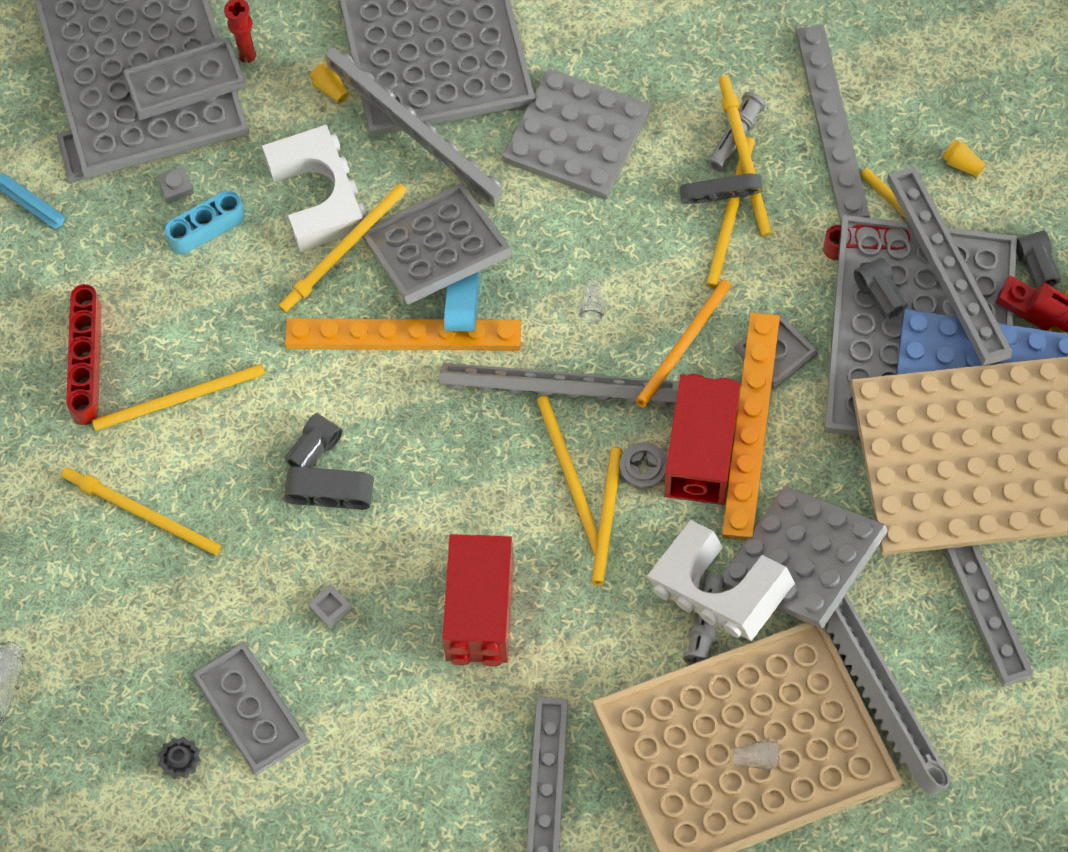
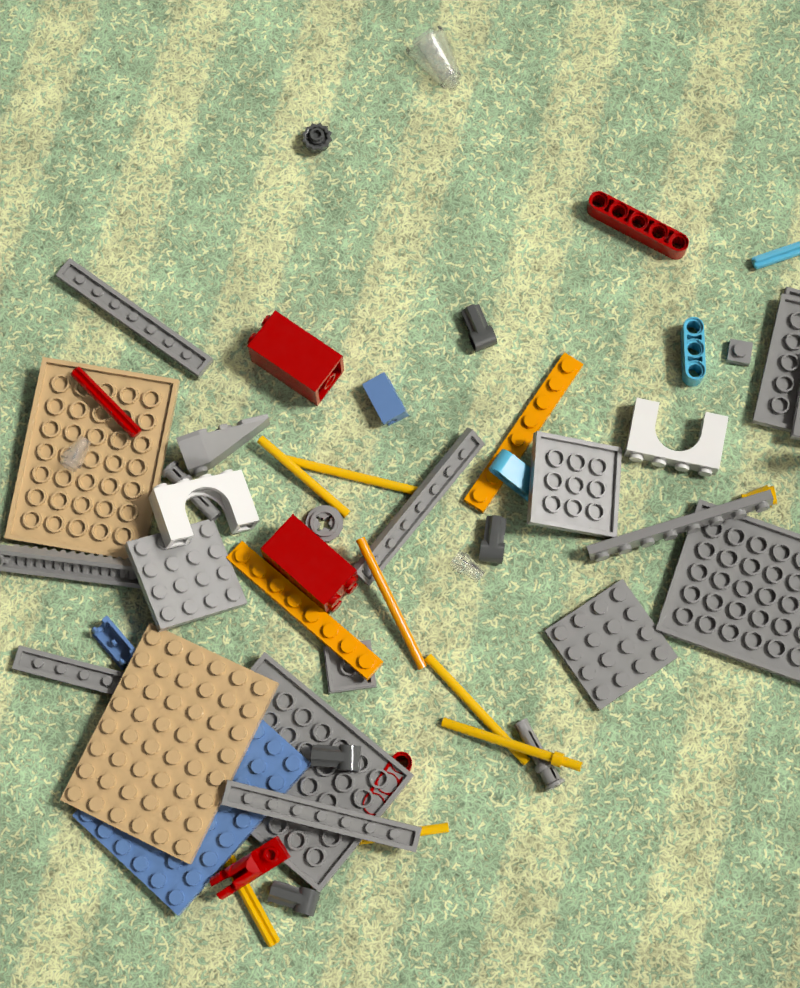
camera: 120 degrees right, 10 degrees up
(91, 486) = (538, 184): yellow bar -> none
(179, 396) = (569, 269): yellow piece -> none
(250, 708) = (325, 197): light grey tile -> none
(303, 287) = (601, 388): yellow bar -> none
(328, 488) = (439, 319): dark grey beam -> none
(329, 606) = (357, 275): light grey plate -> none
(460, 486) = (385, 399): none -> medium blue hinge
(552, 289) = (492, 545): none -> dark grey piece
(639, 626) = (207, 449): none -> light grey wedge
(675, 762) = (106, 402): none -> red axle
(721, 188) = (493, 708): dark grey beam -> none
(832, 122) = (503, 832): light grey plate -> none
(926, 588) = (114, 642): none -> medium blue hinge
(963, 158) = (410, 904): yellow cone -> none

